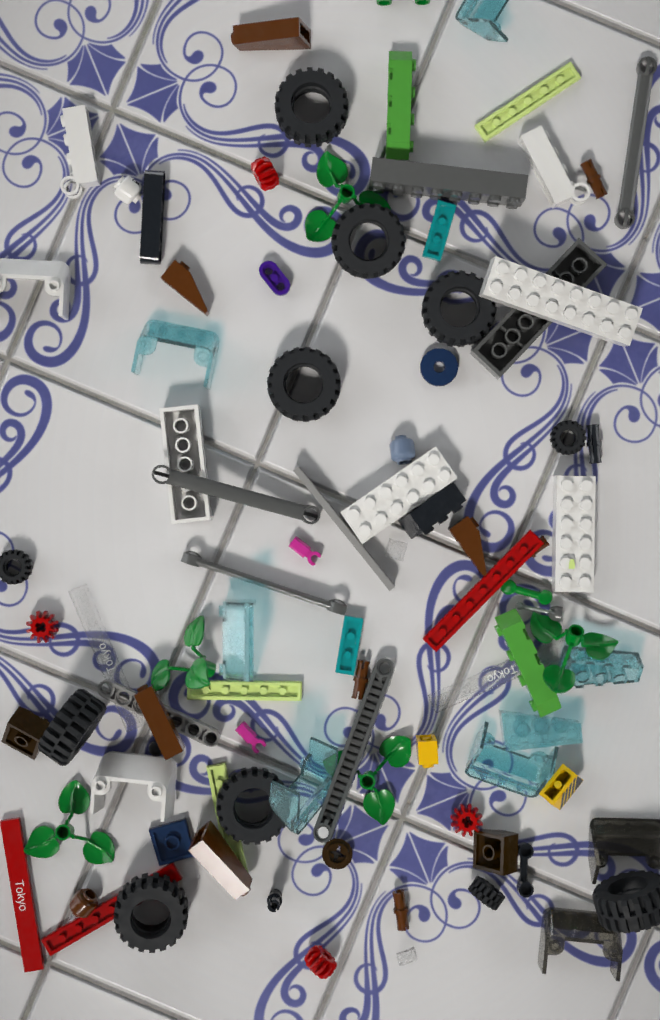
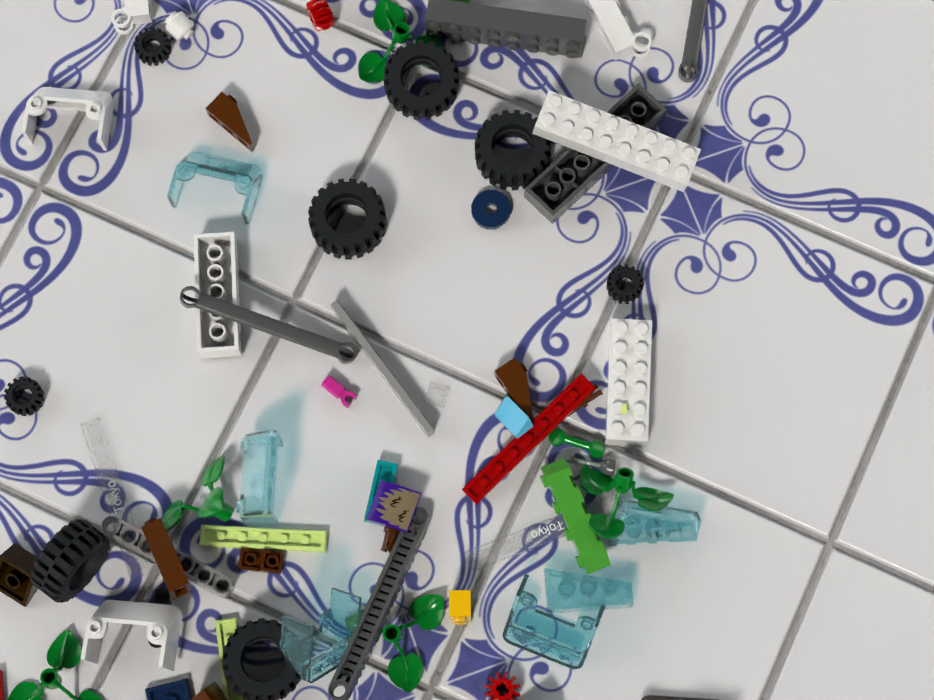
camera: 10 degrees right, 15 degrees down
(39, 619) = (42, 465): red gear -> none
(98, 201) = (148, 36): none -> black tyre
(152, 217) = (202, 53): black beam -> none
(197, 561) = (364, 449): dark grey piece -> none
(243, 710) = (260, 560): none -> reddish brown slope
(249, 736) = (265, 588): dark pink bar -> none
(275, 278) = (325, 116): dark purple plate -> none
(362, 660) = (393, 506): none -> slope
(398, 495) = (442, 335): white brick -> none
(402, 450) = (448, 289): sand blue head -> none
(433, 511) = (477, 352): black wedge -> none
(439, 230) = (496, 76): teal plate -> none
(468, 572) = (513, 418): none -> medium azure slope
(561, 787) = (609, 655): yellow brick -> none
(593, 179) = (656, 32): reddish brown pin -> none
(594, 443) = (652, 291): black pin -> none

